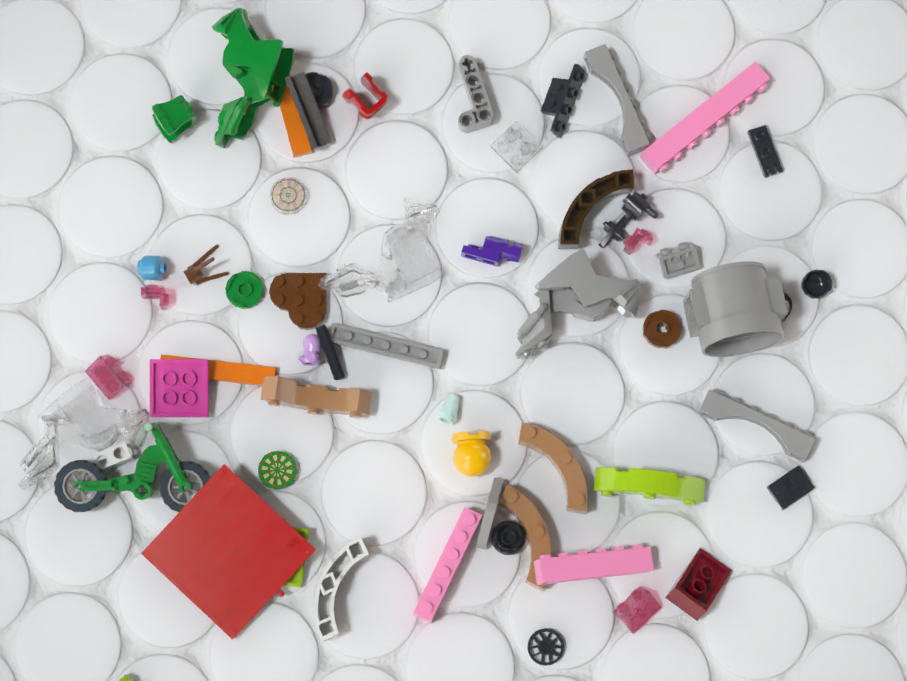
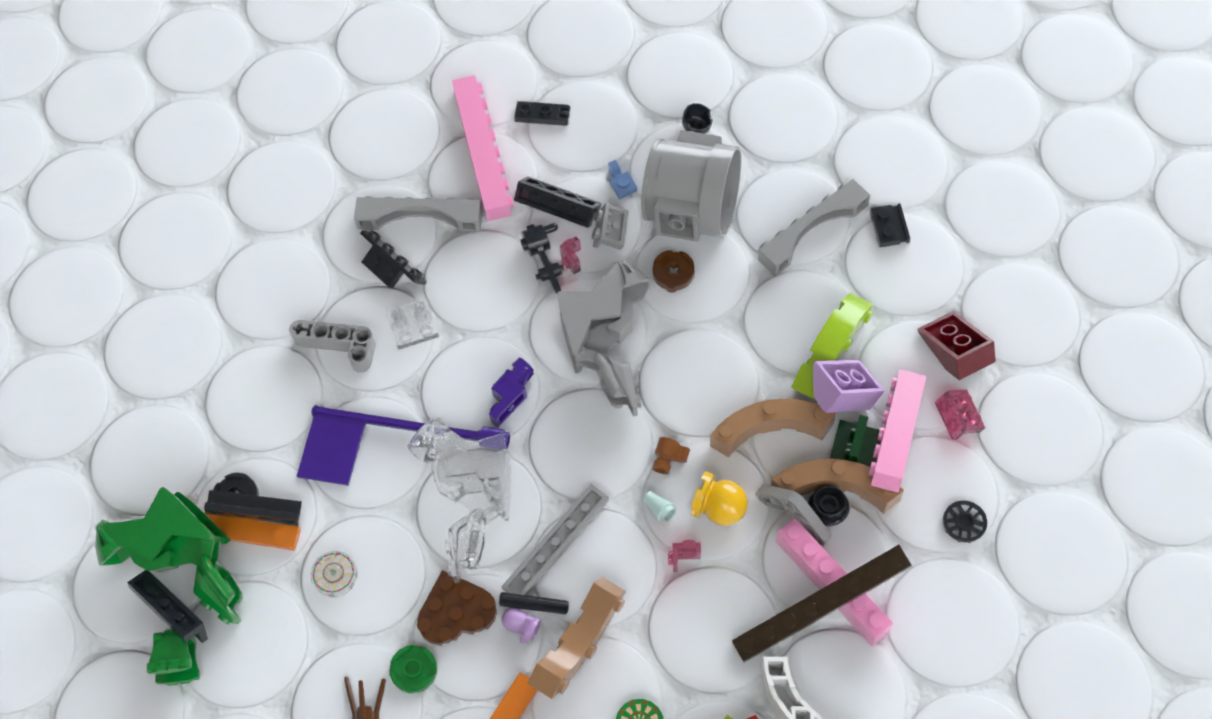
camera: 55 degrees left, 15 degrees down
(204, 92) = (167, 607): none -> black fence
(366, 81) = (270, 432): red piece -> none
(395, 140) = (337, 438): none -> dark purple flag
(422, 563) = (821, 603): none -> dark brown plate
(424, 445) = (686, 550): none -> clear pink bracket
(498, 396) = (667, 451): none -> dark orange piece
(571, 536) = (855, 442): none -> dark green bracket
(593, 194) = (519, 300): dark brown brick -> none
(611, 508) = (844, 386): none -> lavender slope
(680, 204) = (556, 201): none -> black fence
(726, 249) = (621, 183): none -> medium blue plate

